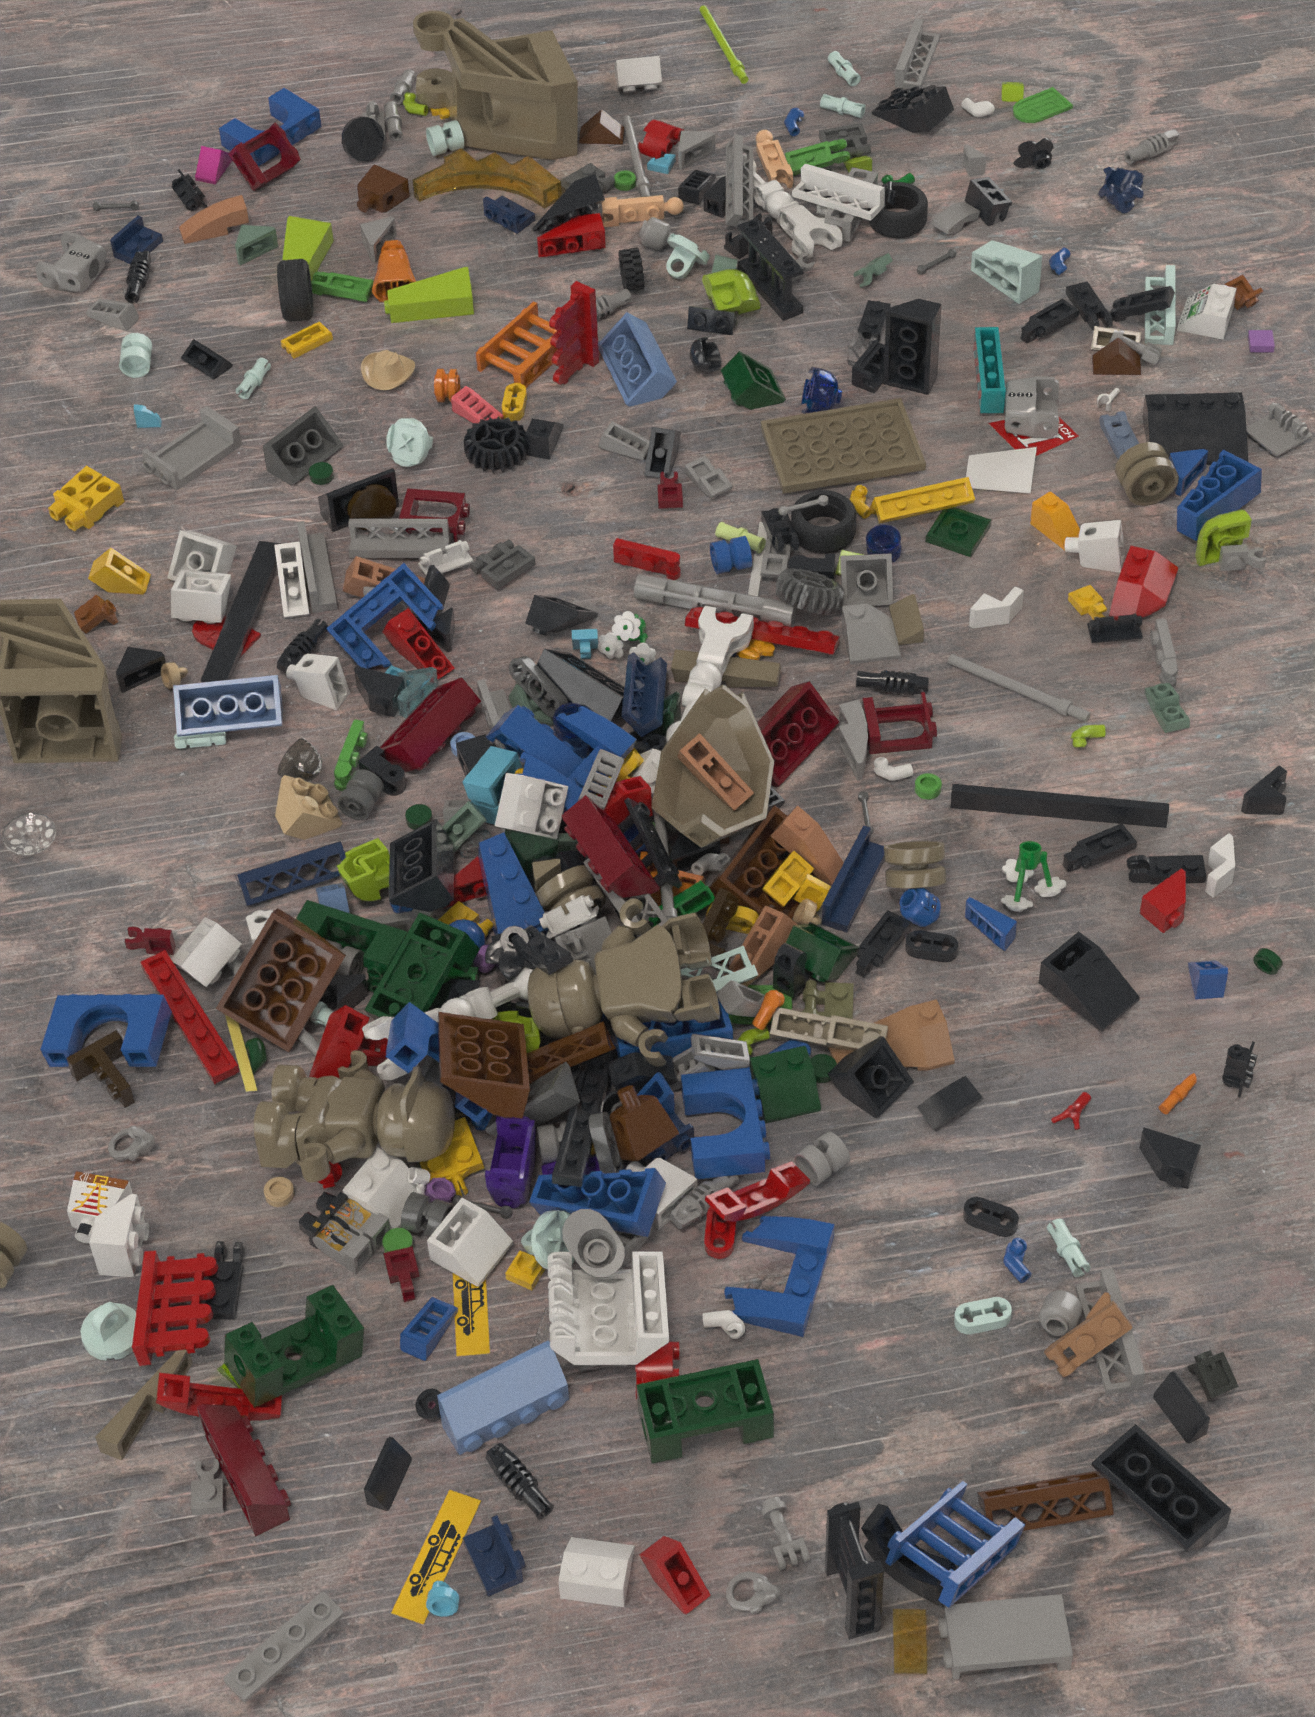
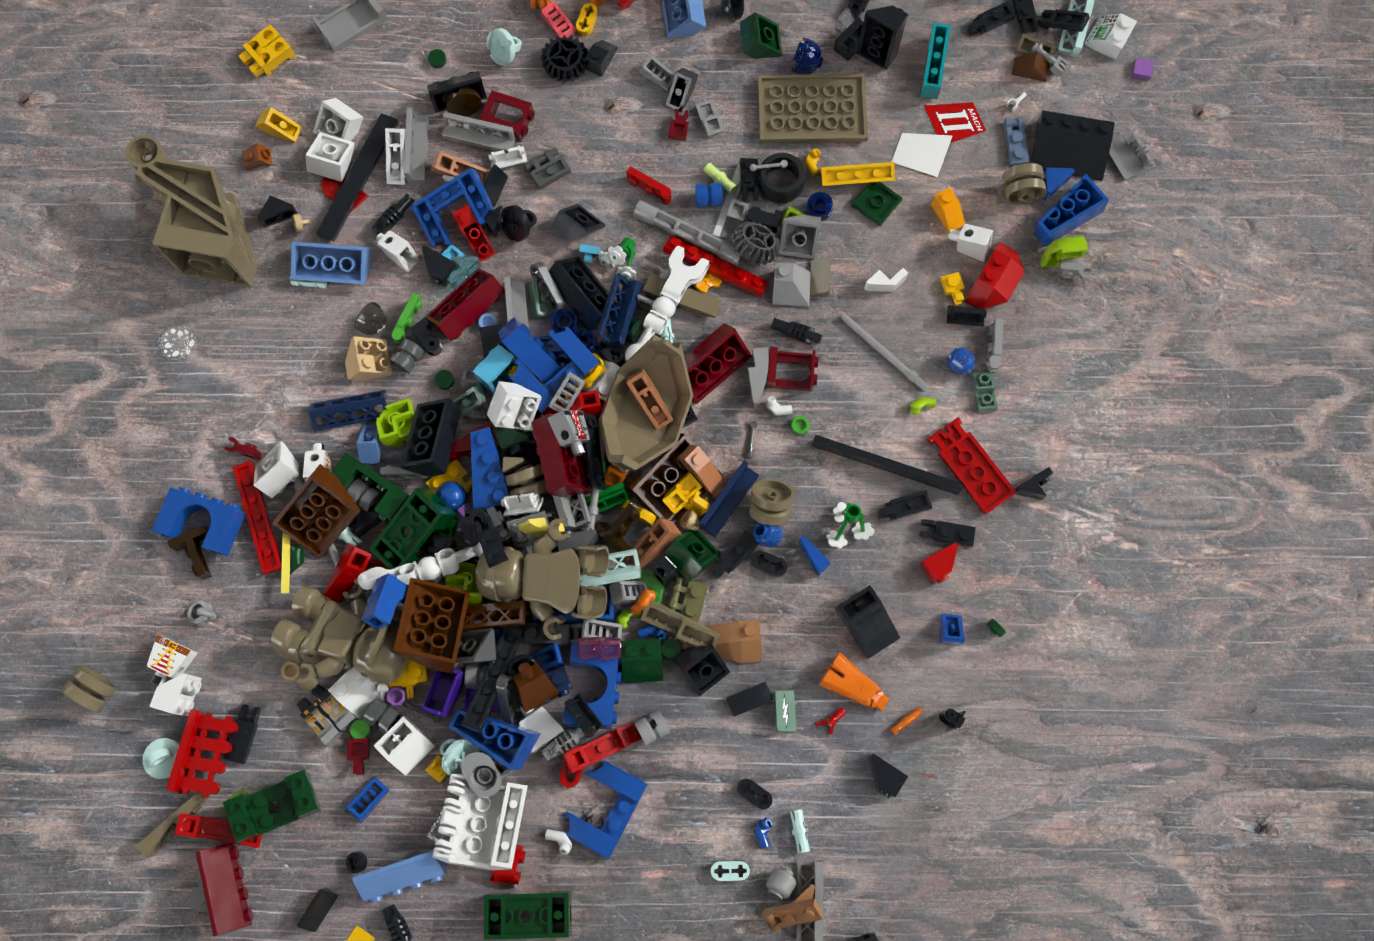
camera: 10 degrees right, 25 degrees up
(300, 446) = (426, 33): dark grey slope -> none
(472, 1318) = (397, 797): yellow sticker -> none
(476, 623) = (516, 222): none -> black tile
(596, 929) = (537, 527): none -> light yellow slope
(617, 811) = (570, 430): none -> light grey torso
(675, 682) = (644, 302): none -> light grey slope
(722, 1066) = (603, 647): none -> clear pink slope
(722, 1140) = (585, 716): none -> black hinge
(1004, 1111) = (785, 711): none -> sand green slope
(1030, 408) = (957, 101): light grey piece -> none
(1083, 1057) = (851, 683): none -> orange piece
(1124, 675) = (961, 361): none -> blue head
(1165, 780) = (972, 466): none -> red hinge
(1223, 862) = (988, 534): white slope -> none
(1244, 292) = (1143, 23): dark orange bracket -> none

